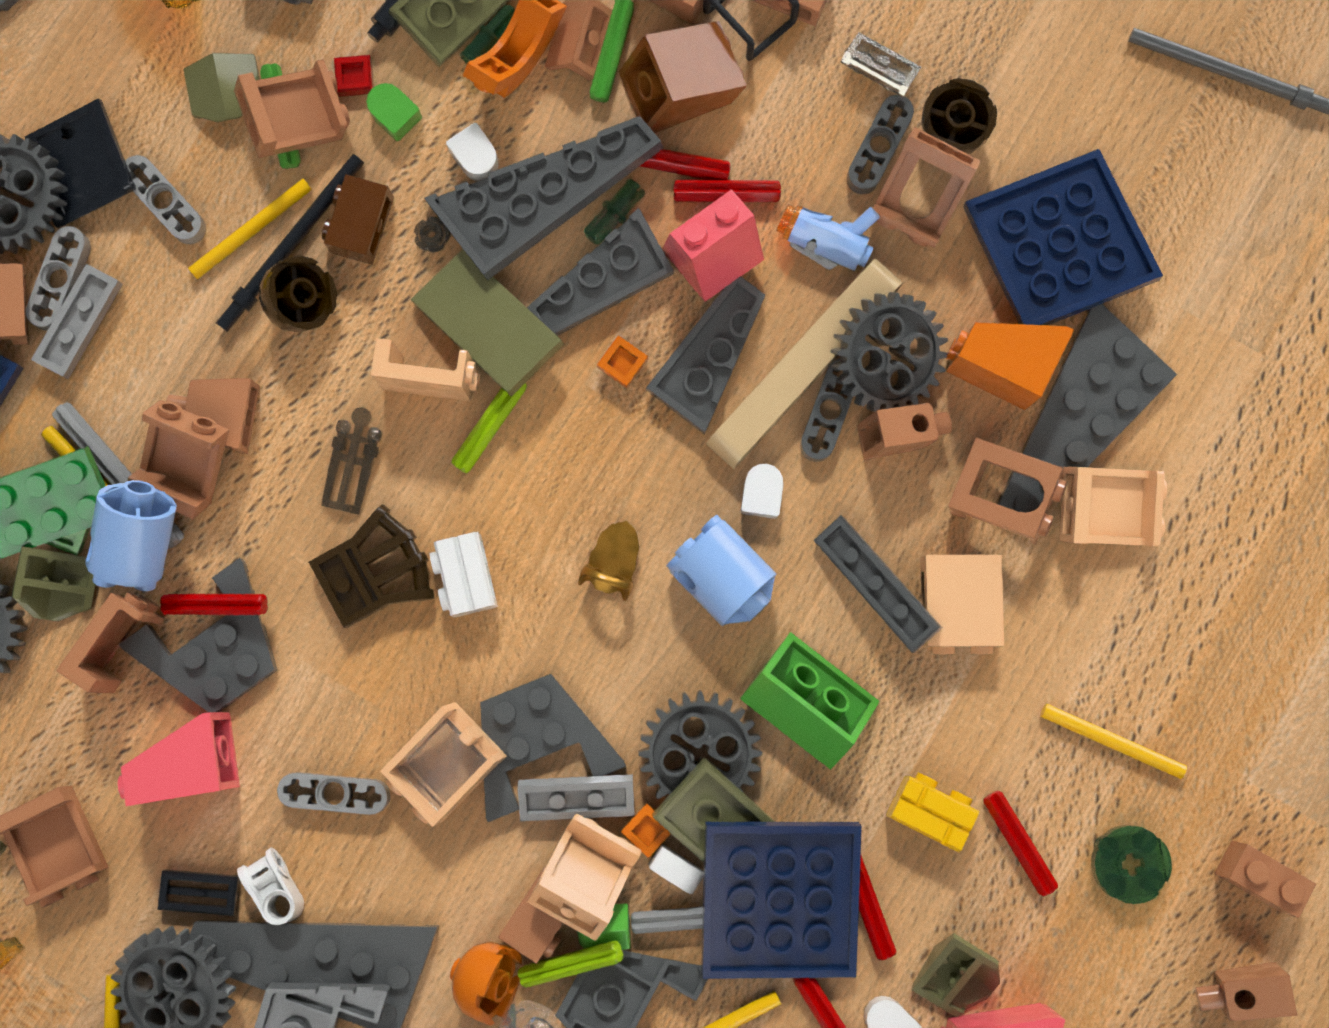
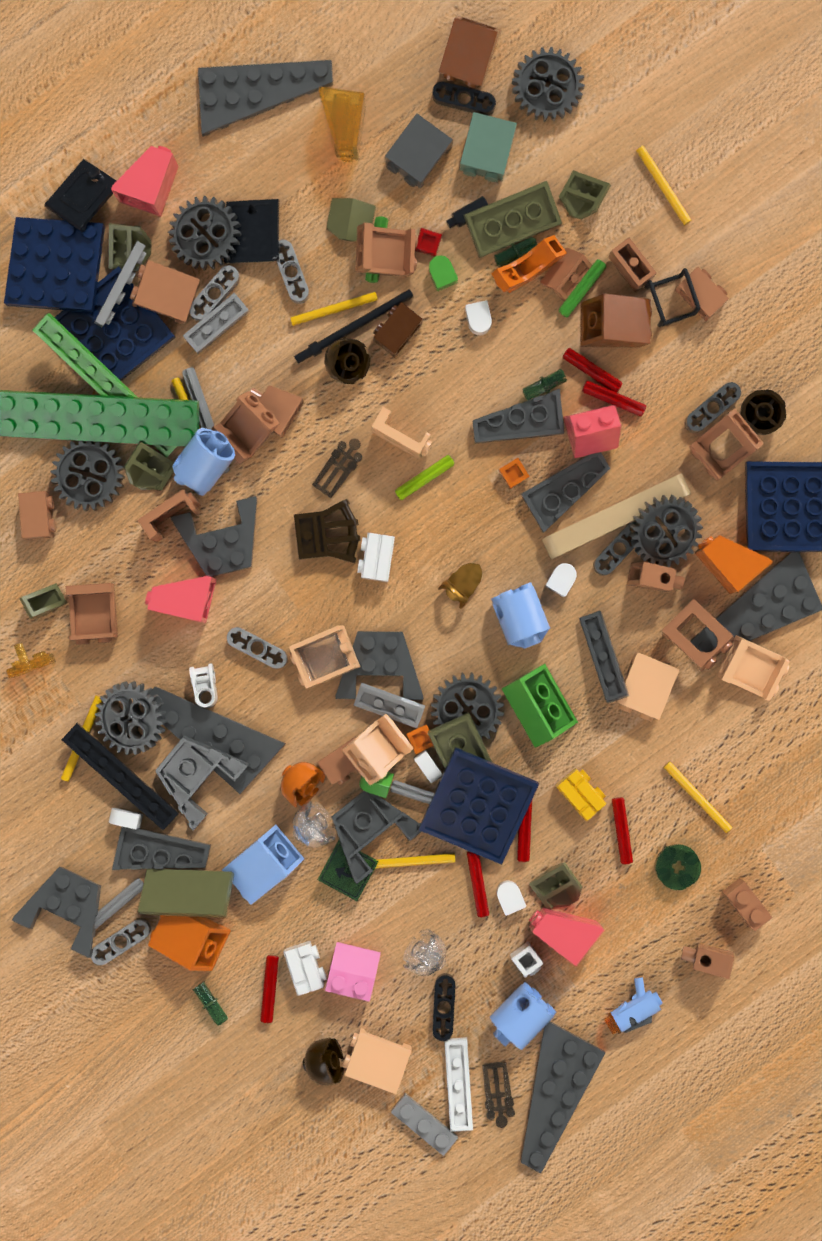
camera: 20 degrees right, 5 degrees up
(213, 604) = (232, 516): red axle -> none
(231, 894) = (145, 662): black tile -> none
(435, 243) = (435, 361): clear smoke plate -> none
(487, 322) = (447, 419): olive tile -> none
(532, 198) = (501, 358): dark grey wing -> none
(570, 964) = (351, 793): lime axle -> none
(827, 240) = (658, 451): light blue piece -> none
(880, 64) = (733, 361): clear smoke plate -> none

